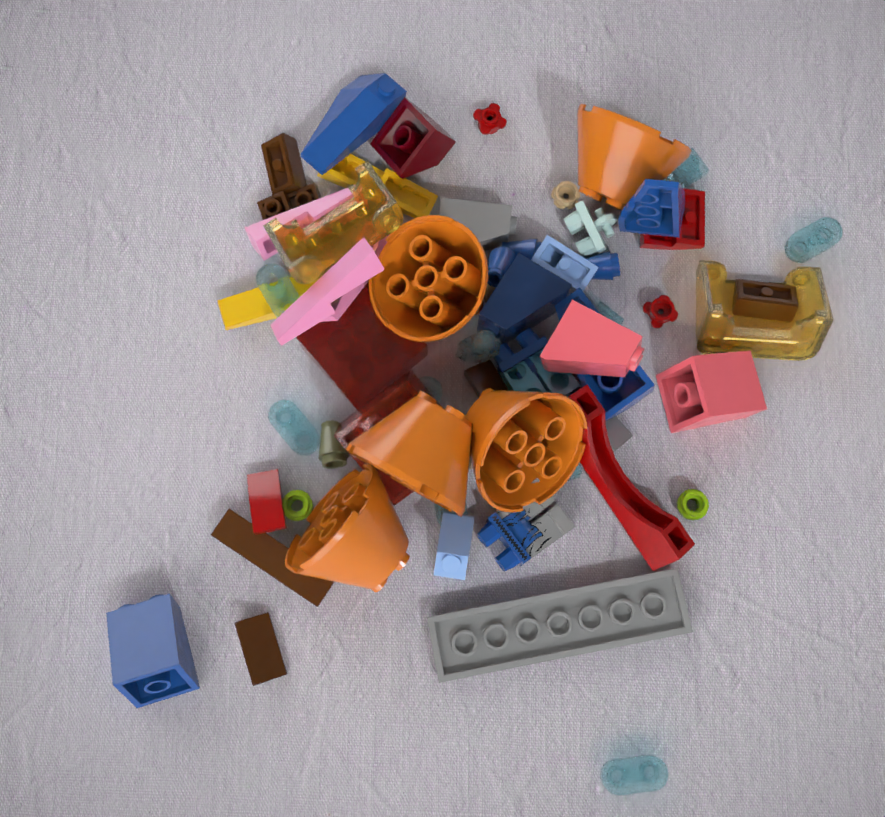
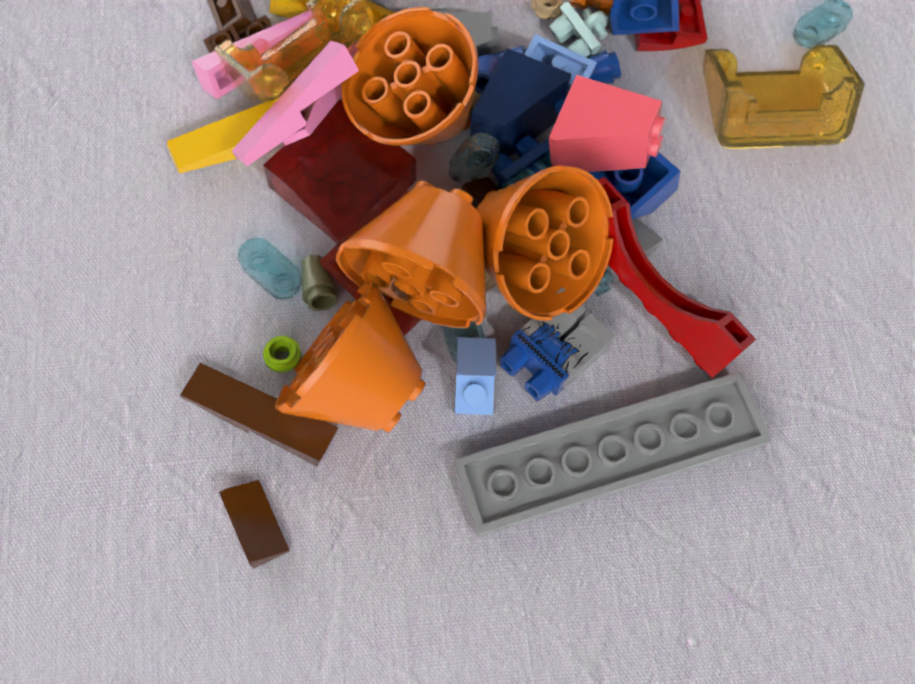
camera: 10 degrees left, 10 degrees down
(150, 651) = (116, 540): slope -> none
(266, 501) = (245, 351): red slope -> none
(276, 295) = (238, 123): clear light blue plate -> none
(633, 776) = (730, 617): clear light blue plate -> none
(664, 303) = (677, 103): red plate -> none
(701, 501) = (748, 296): lime plate -> none
(710, 390) = (741, 180): coral slope -> none
(764, 300) = (783, 87): reddish brown slope -> none

